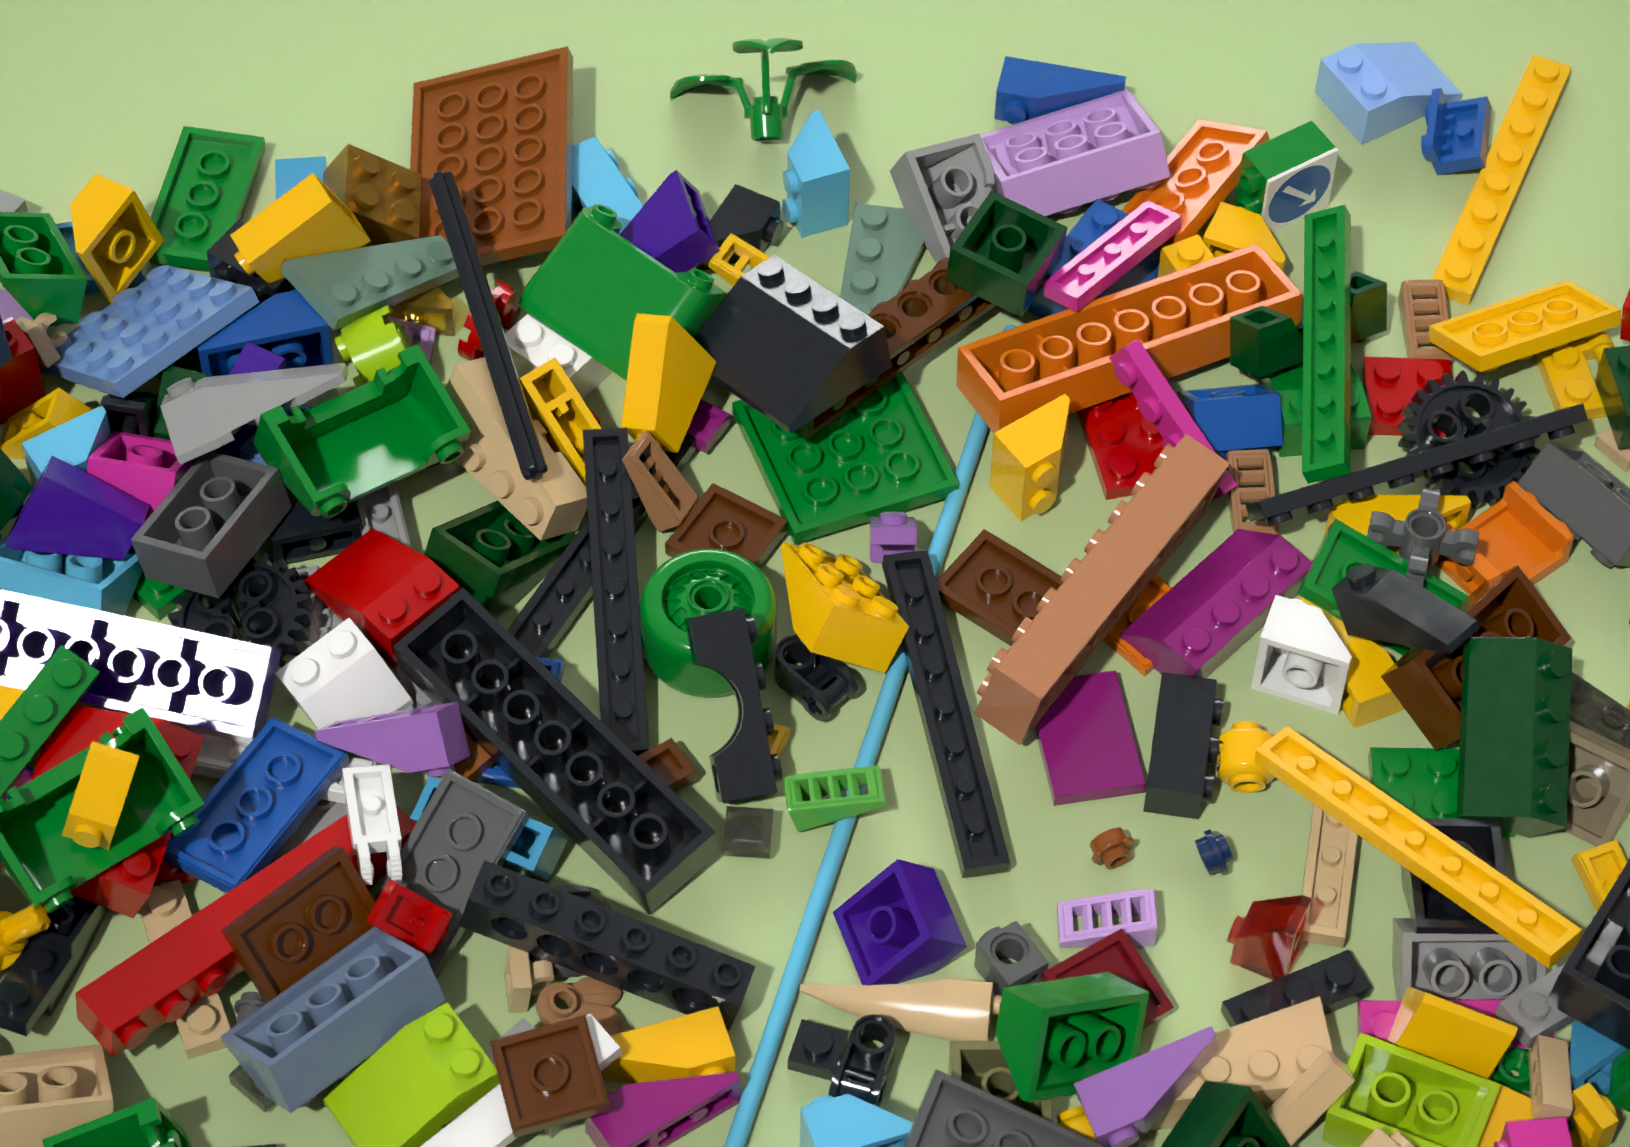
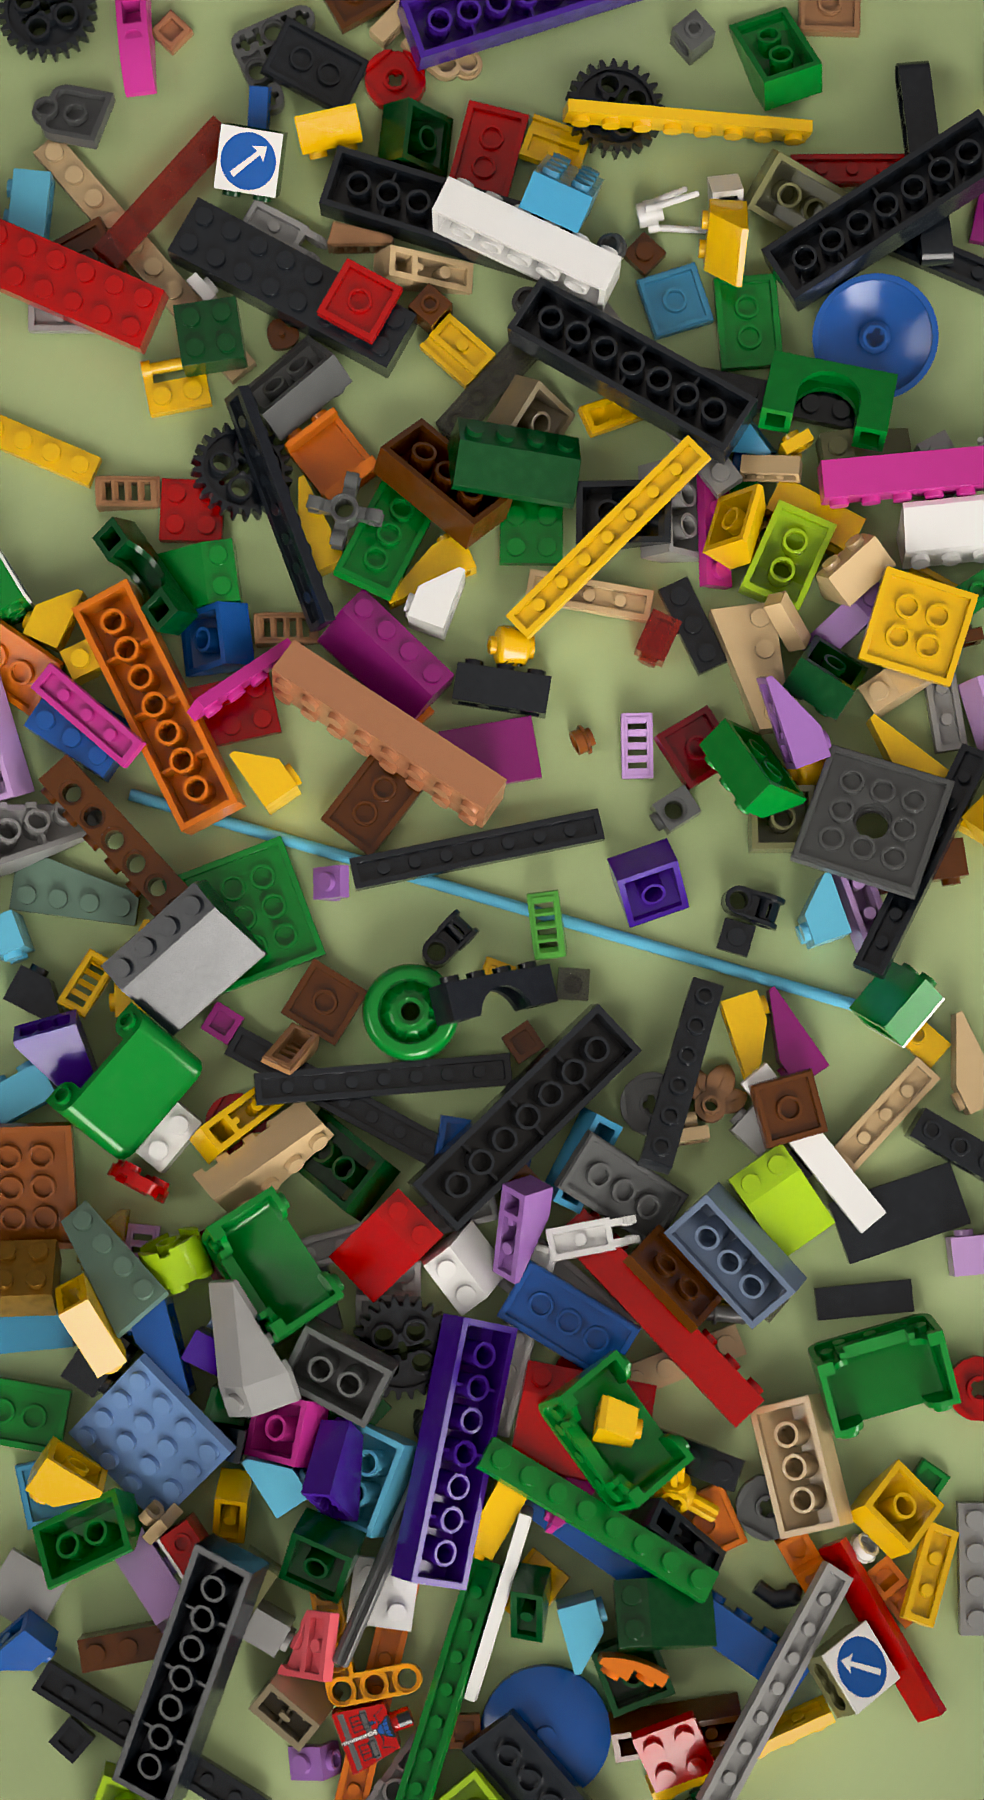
camera: 90 degrees left, 30 degrees up
(410, 917) = (660, 1207): red bracket -> none
(488, 327) = (165, 1179): black axle -> none
(664, 380) = (217, 1047): yellow slope -> none
(840, 608) = (395, 921): yellow slope -> none
(930, 1008) = (707, 861): tan piece -> none
(1006, 253) = (104, 792): dark green brick -> none
(1214, 852) = (586, 672): dark blue plate -> none
(1327, 345) = (177, 563): green plate -> none
(1396, 610) = (430, 528): black slope -> none
(1524, 326) = (140, 421): yellow plate -> none

